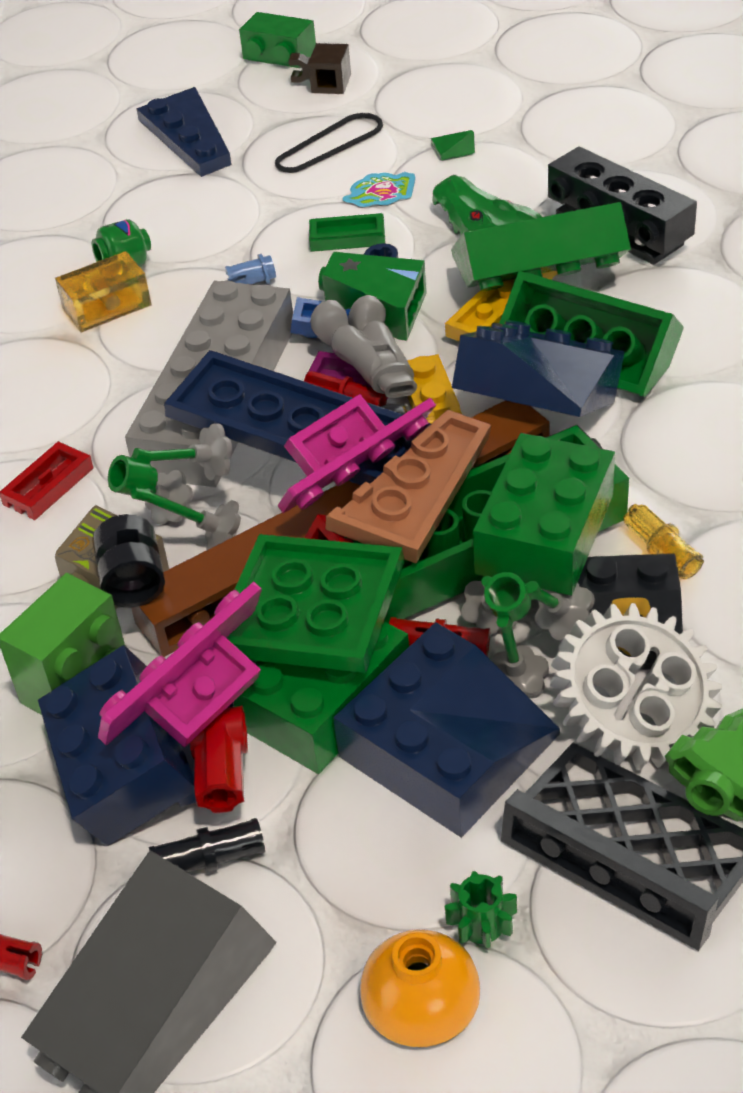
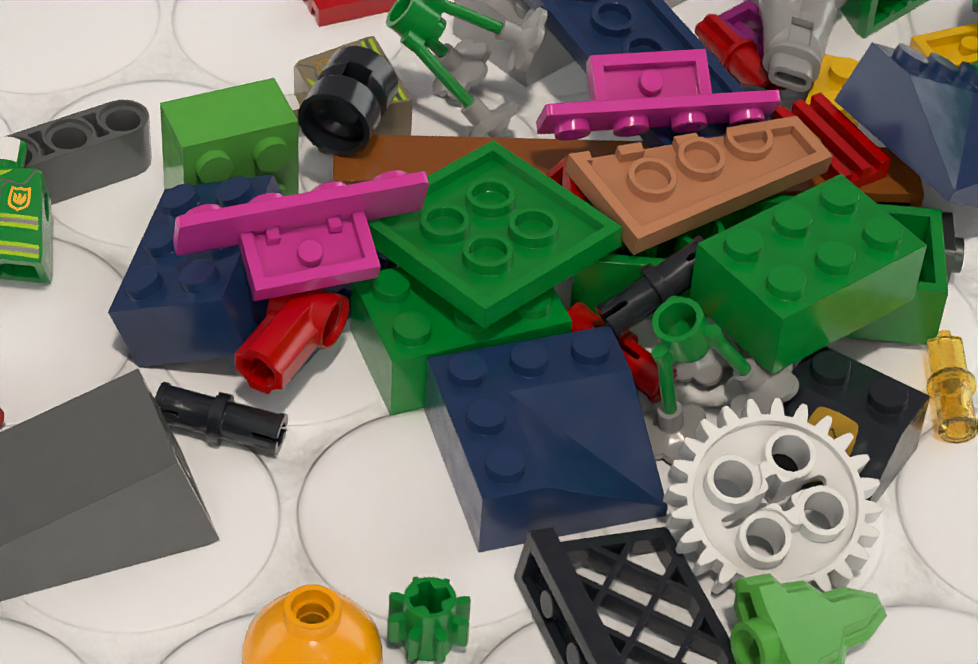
camera: 25 degrees right, 0 degrees up
(447, 578) = (649, 291): none -> black pin
(499, 416) = (841, 140): none -> red tile

